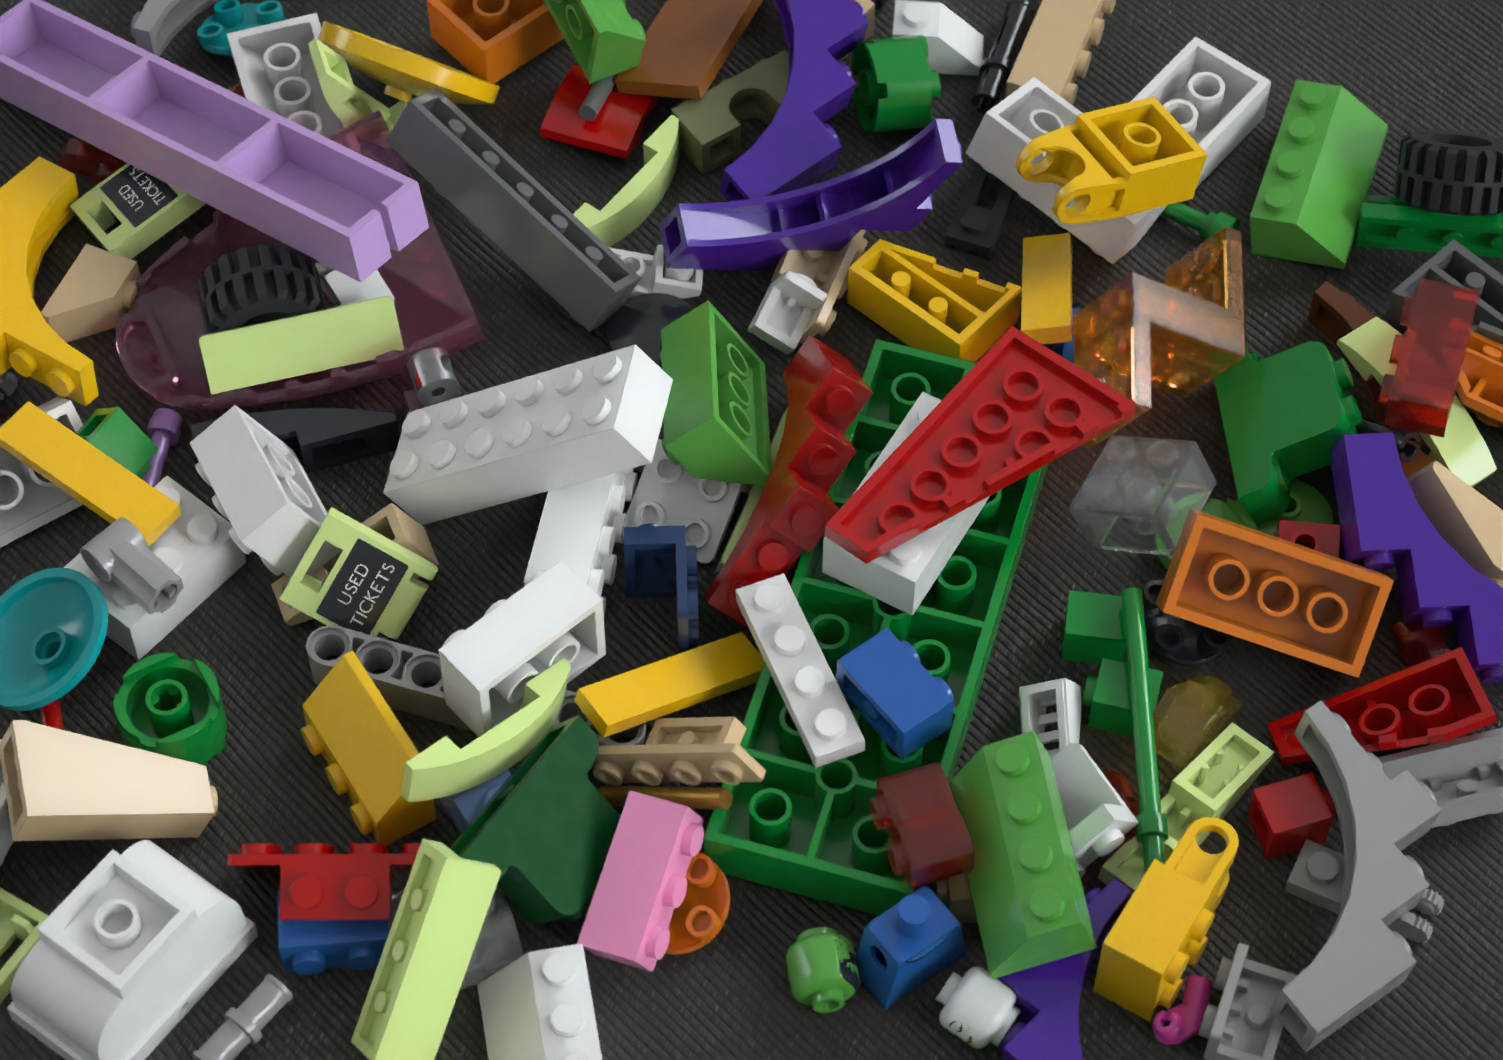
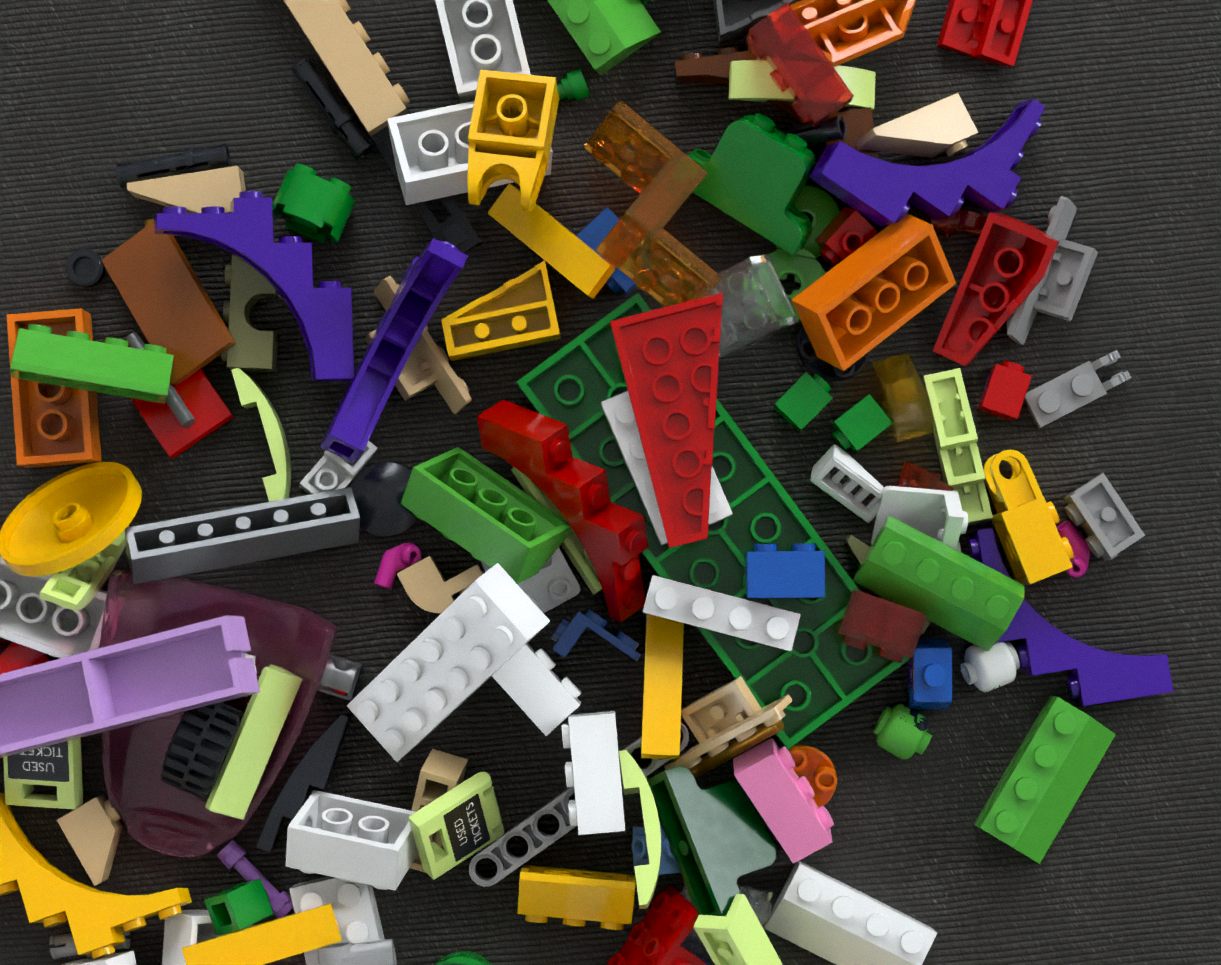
camera: 50 degrees left, 30 degrees up
(786, 311) = (437, 411): white bracket -> none
(951, 42) = (289, 142): white slope -> none
(1152, 825) = (959, 482): green bar -> none
(1380, 883) = (1059, 355): light grey arch -> none

